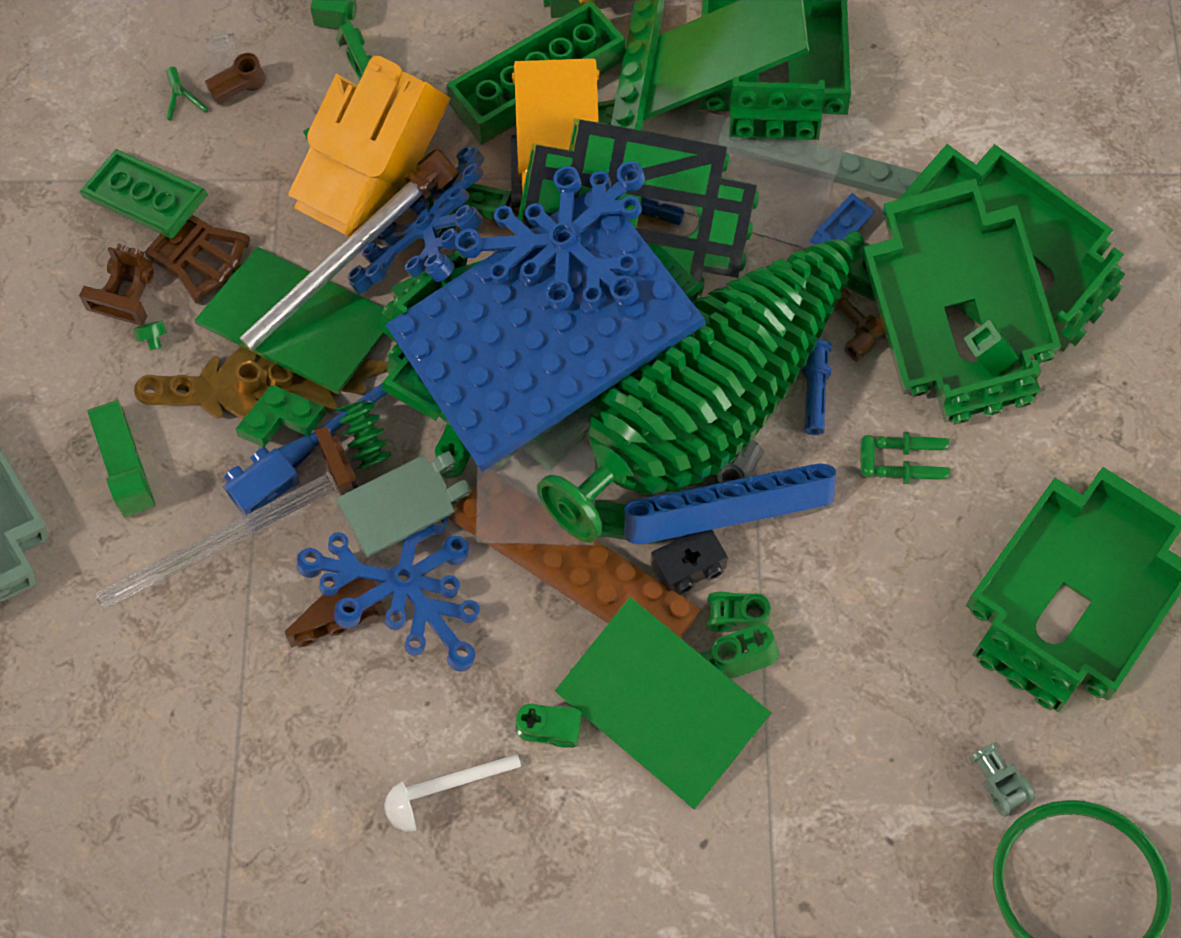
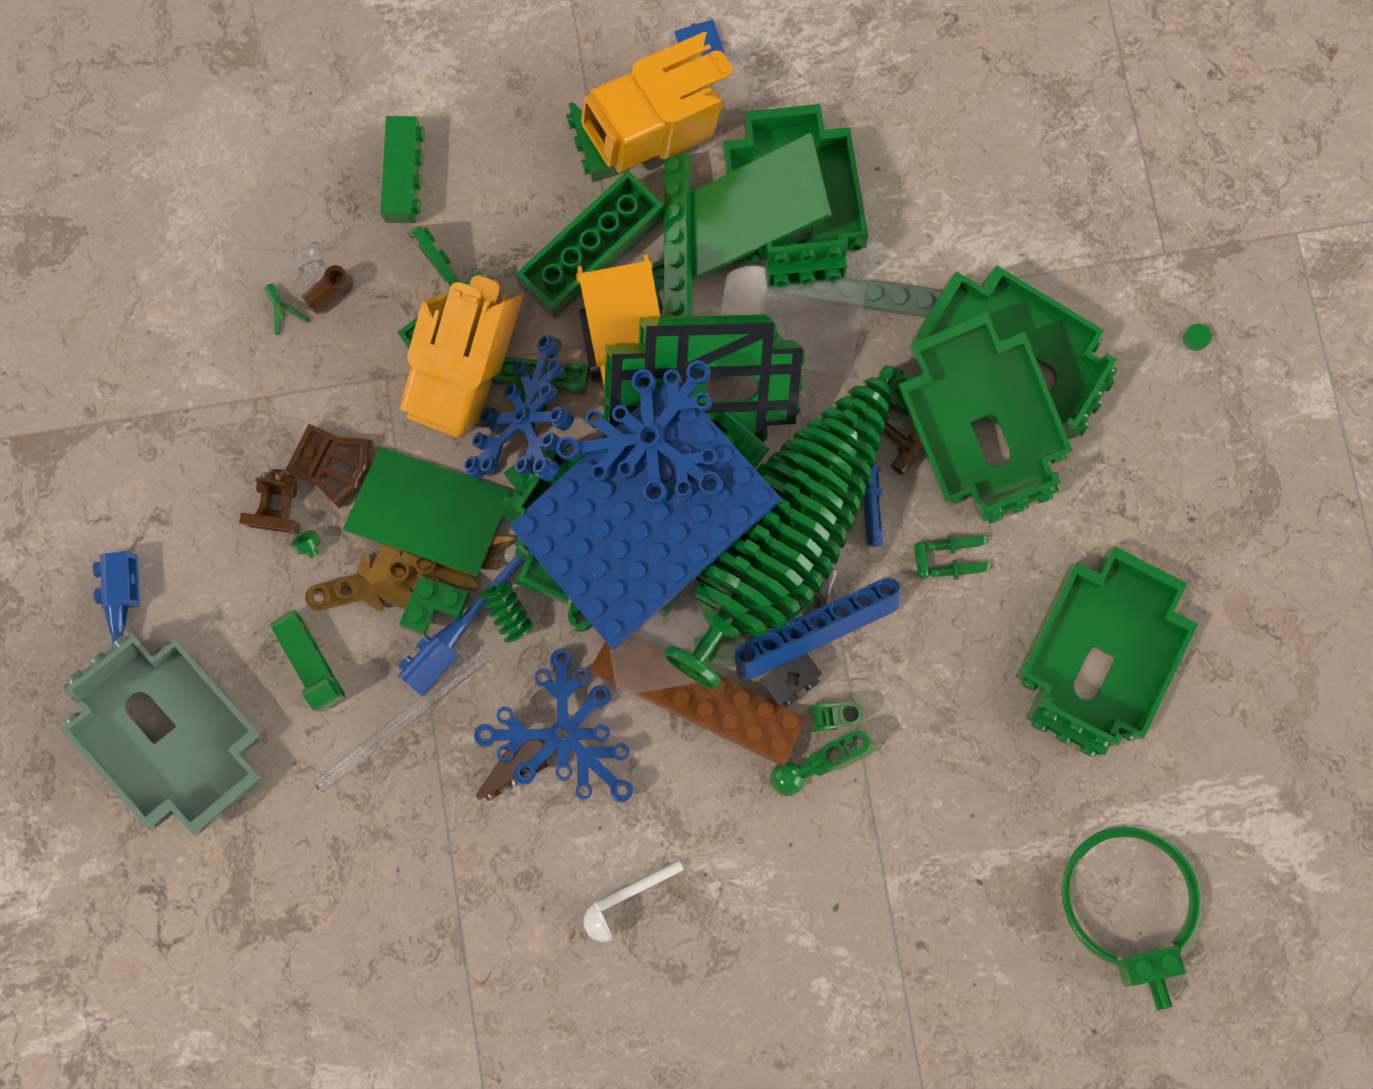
camera: 10 degrees left, 15 degrees up
(143, 193) = (272, 413): green tile -> none
(336, 461) = (486, 638): reddish brown plate -> none
(401, 503) = (549, 671): sand green tile -> none
(432, 173) = (521, 368): flat silver piece -> none
(552, 725) = (707, 834): green piece -> none
(663, 702) = (788, 803): green piece -> none
(846, 218) = (872, 354): blue hinge -> none
(991, 348) = (1014, 458): green panel -> none
(1002, 780) = (1062, 823): sand green connector -> none

